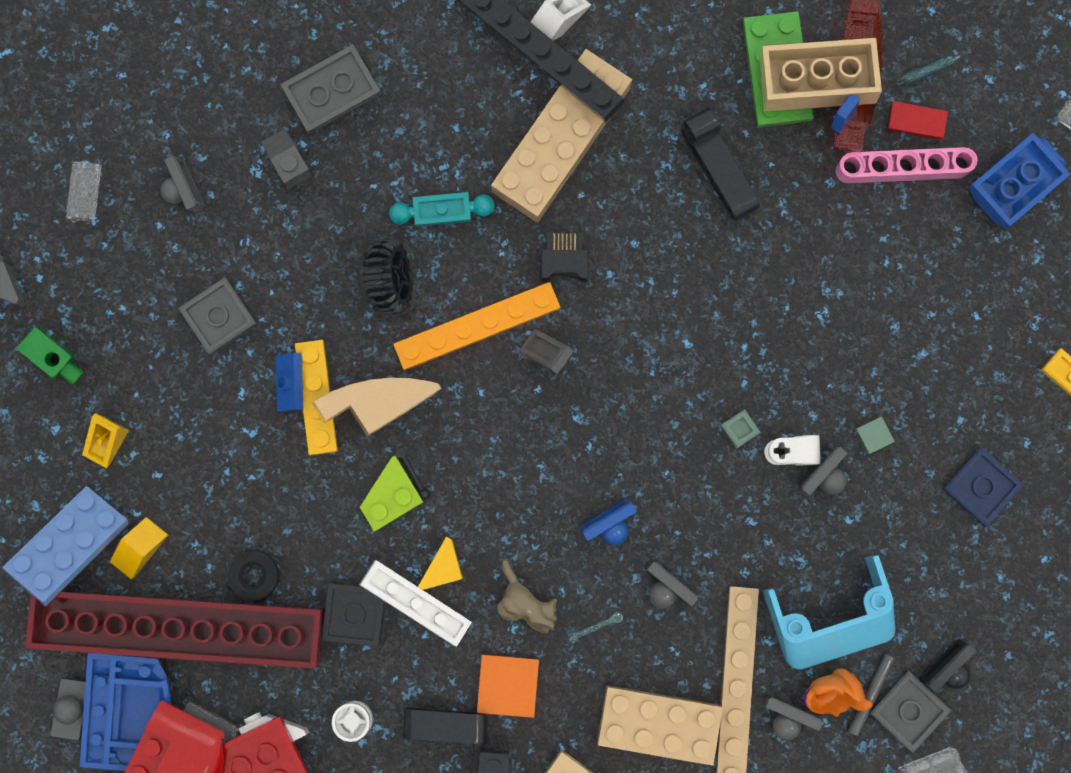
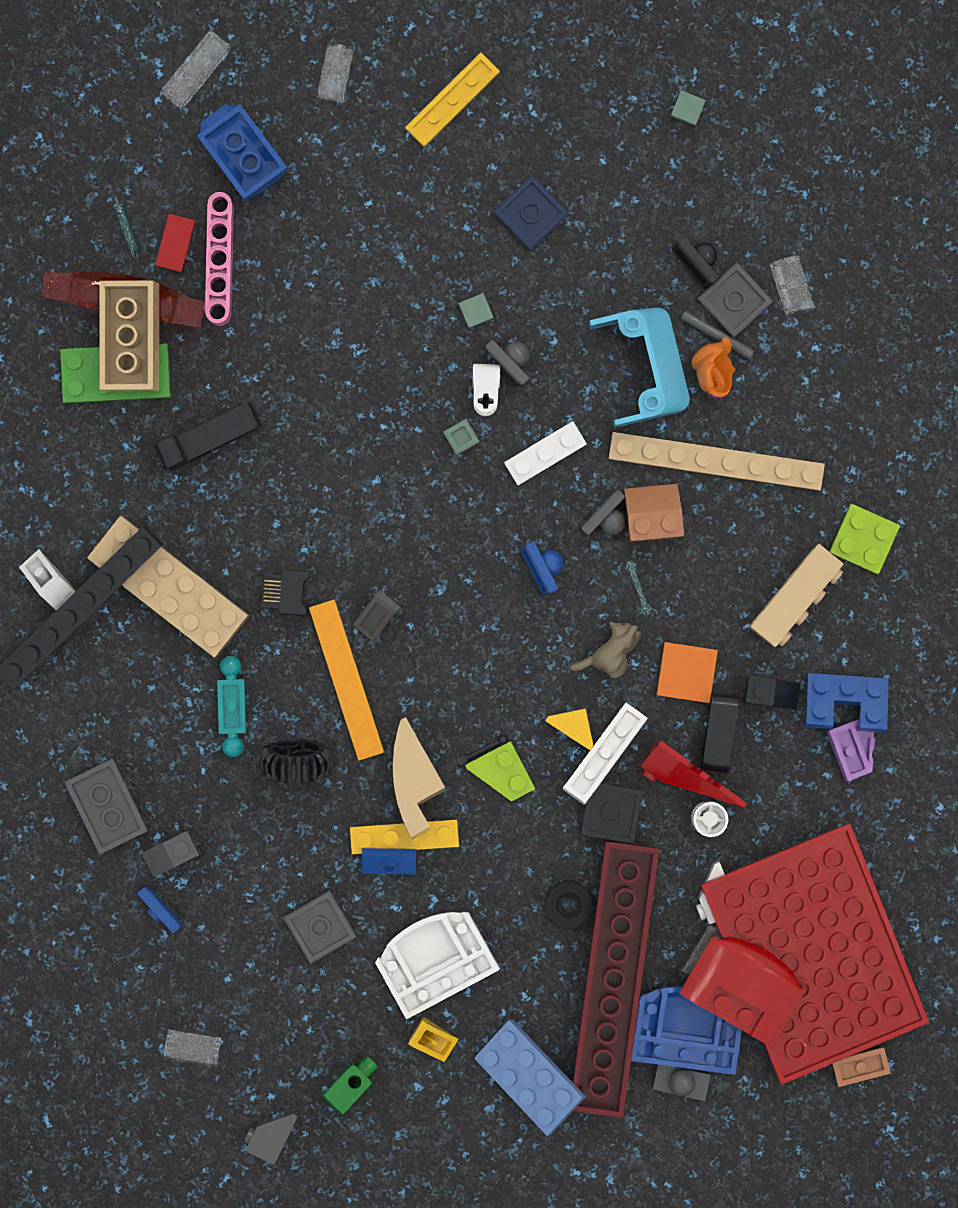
camera: 80 degrees left, 5 degrees up
(138, 547) = (535, 1012): yellow slope -> none
(181, 186) = (192, 955): dark grey tile -> none
(186, 437) = (435, 961): none -> white slope
(226, 149) = (159, 910): none -> blue plate
(402, 679) = (674, 769): none -> red wedge
(659, 725) = (732, 534): tan brick -> none
(675, 639) = (653, 513): none -> nougat slope
(730, 518) = (545, 453): none -> white plate
(788, 723) = (735, 413): dark grey tile -> none
(845, 113) = (170, 315): blue tile -> none

